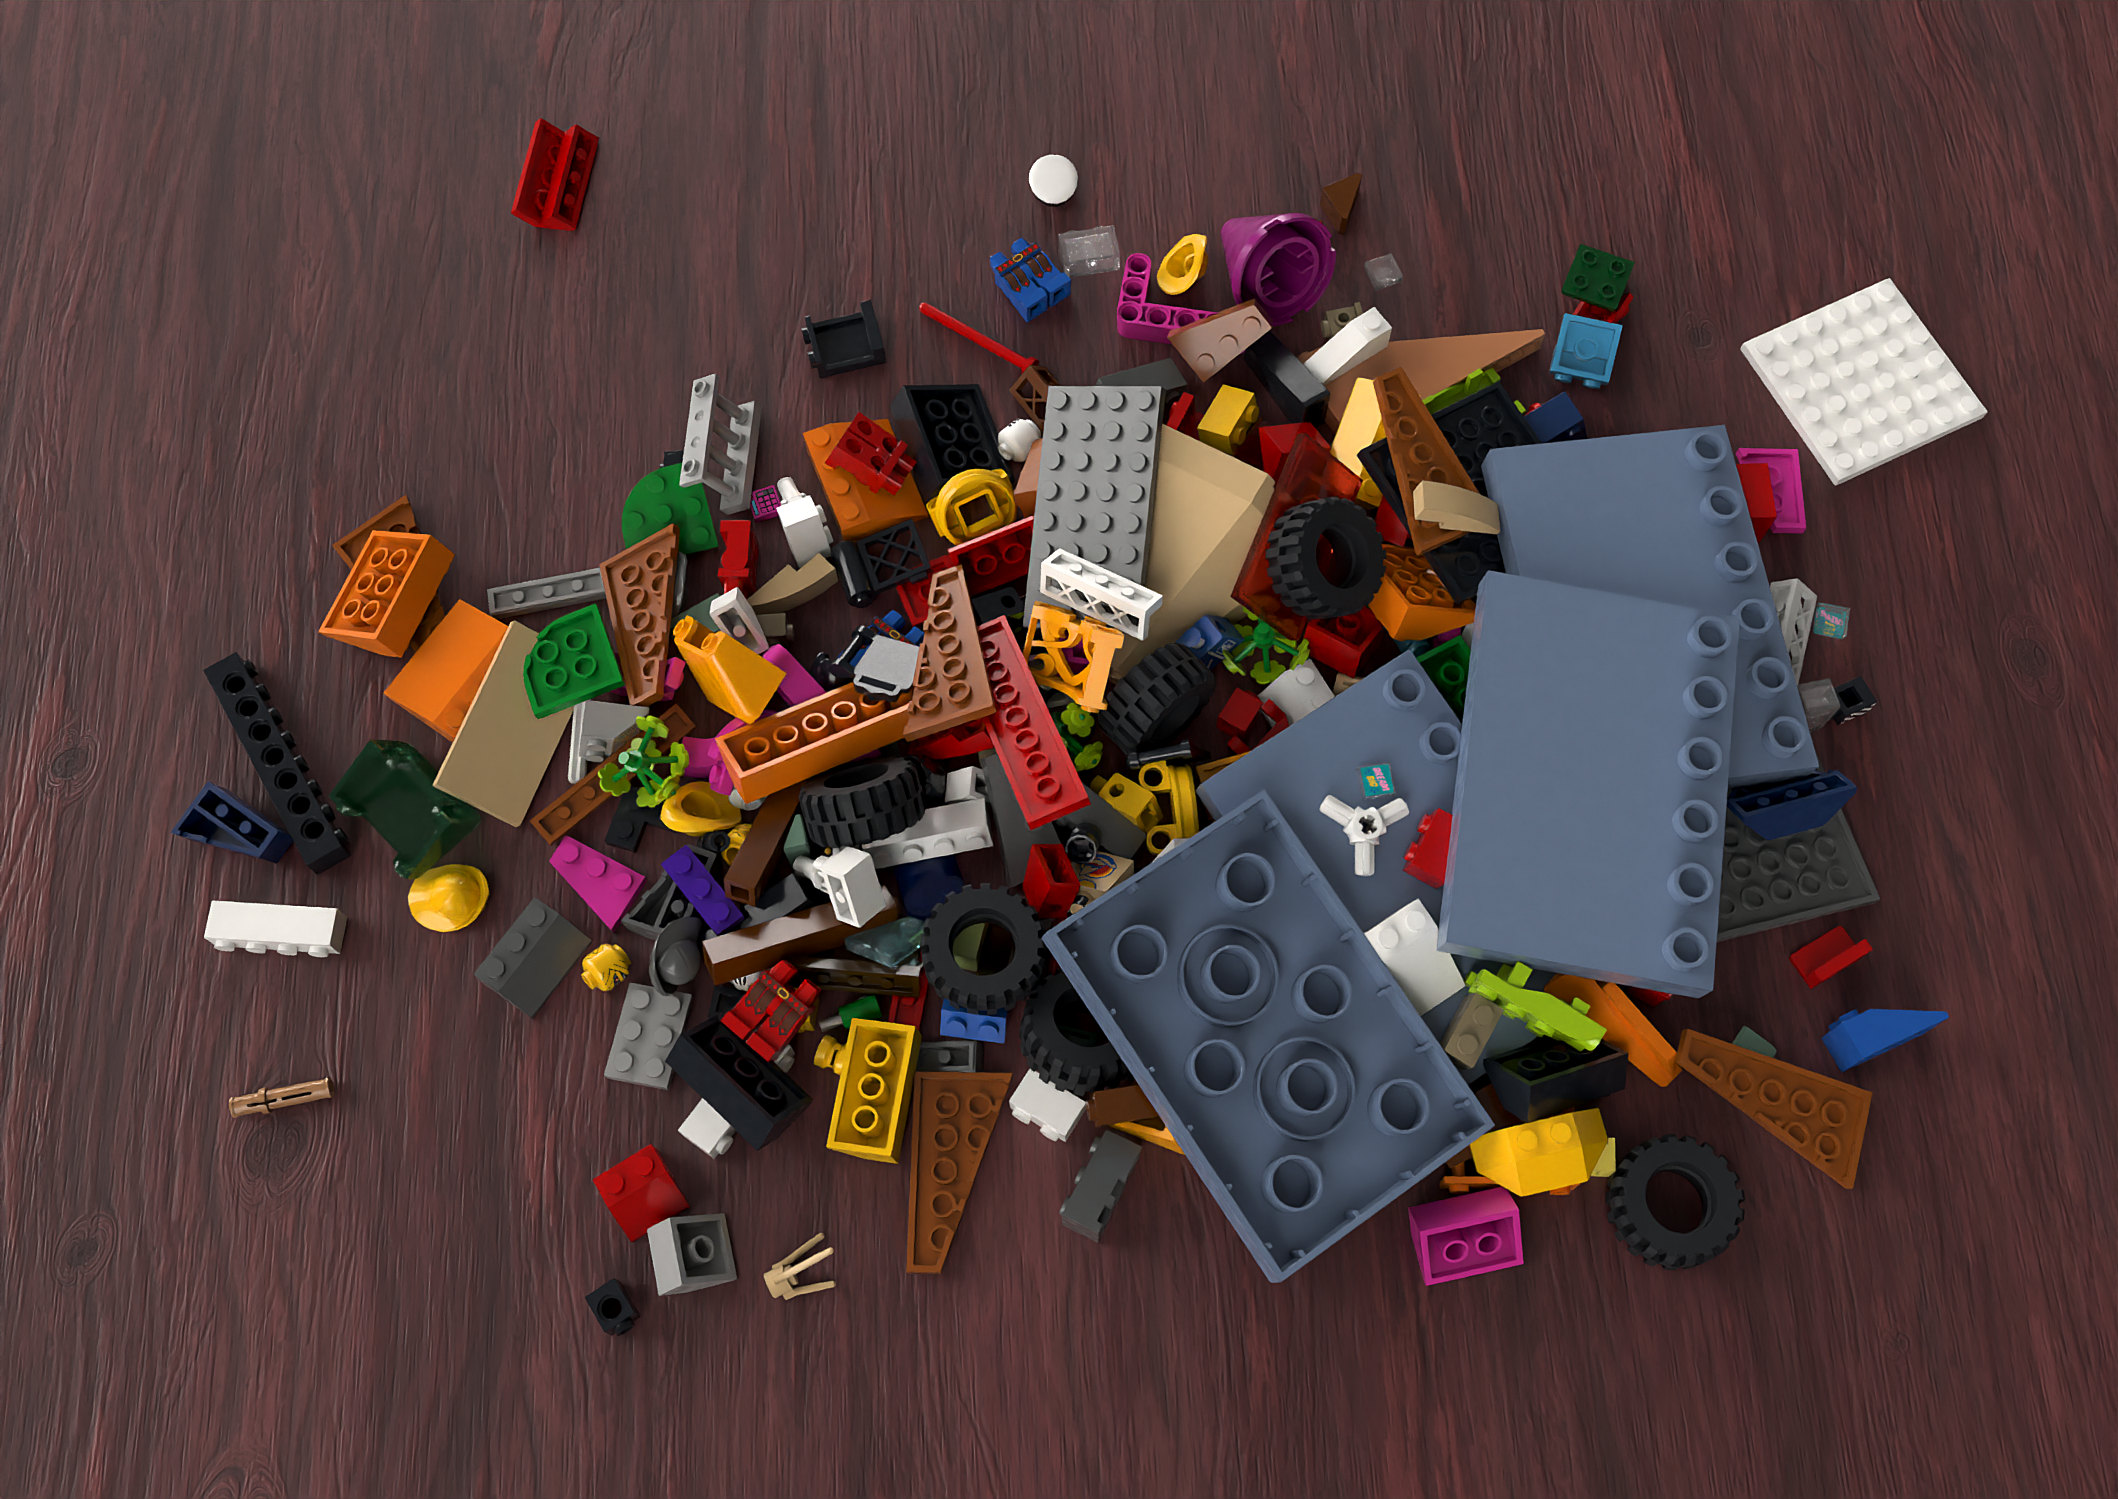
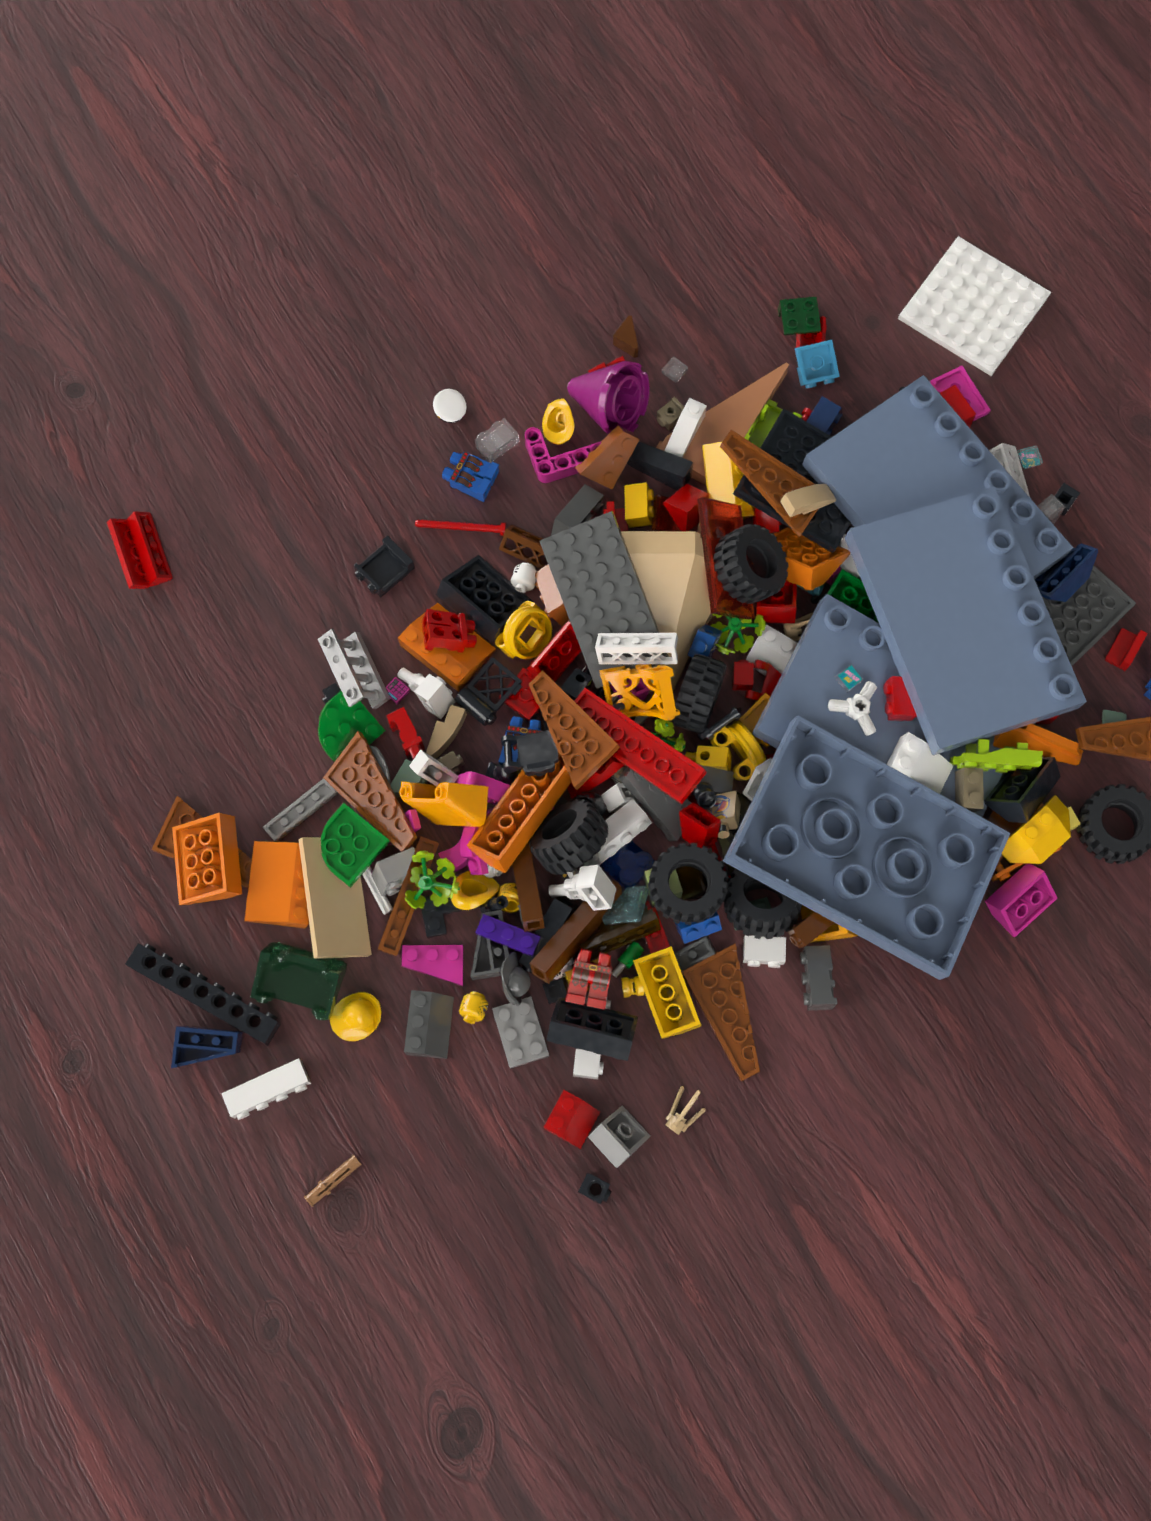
camera: 30 degrees left, 5 degrees up
(798, 841) = (544, 878): sand green slope -> none

